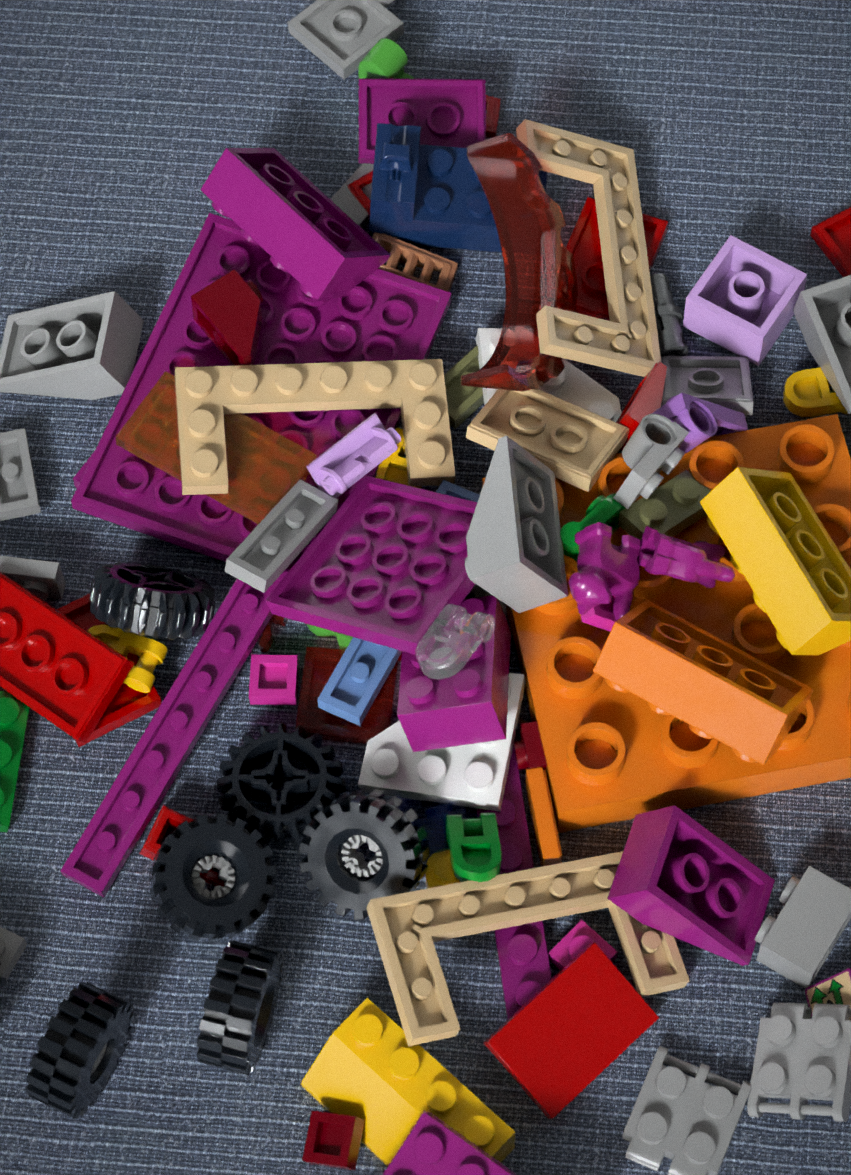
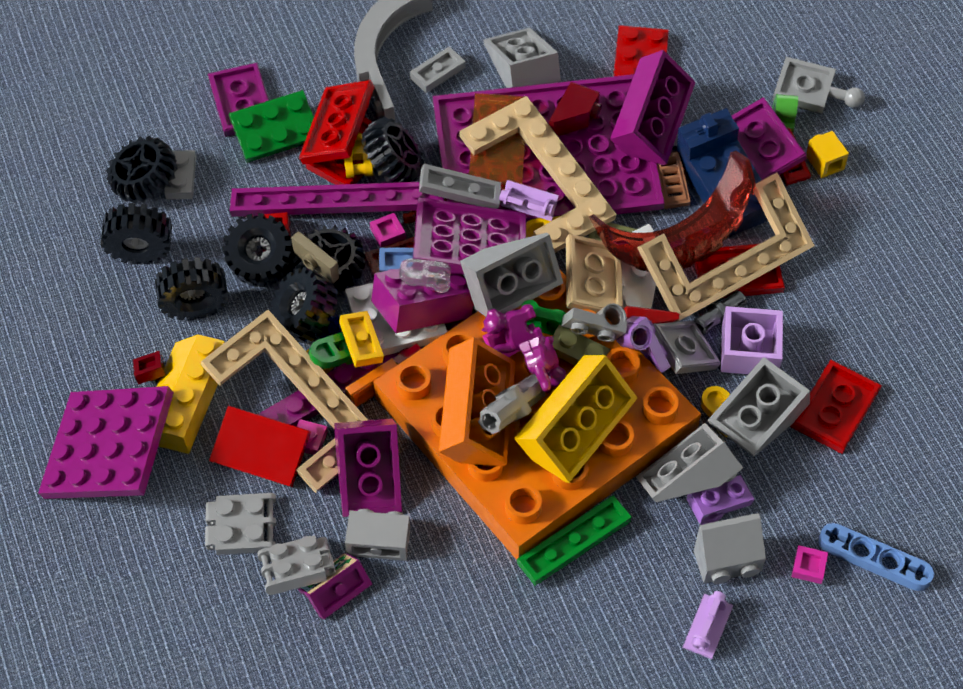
camera: 60 degrees right, 5 degrees down
(155, 199) = (637, 43): none -> red plate
(294, 795) = (315, 257): none -> dark tan plate
(482, 57) = (827, 154): none -> yellow brick
(482, 793) = (361, 339): none -> yellow plate
(734, 631) = (511, 404): none -> light grey piece

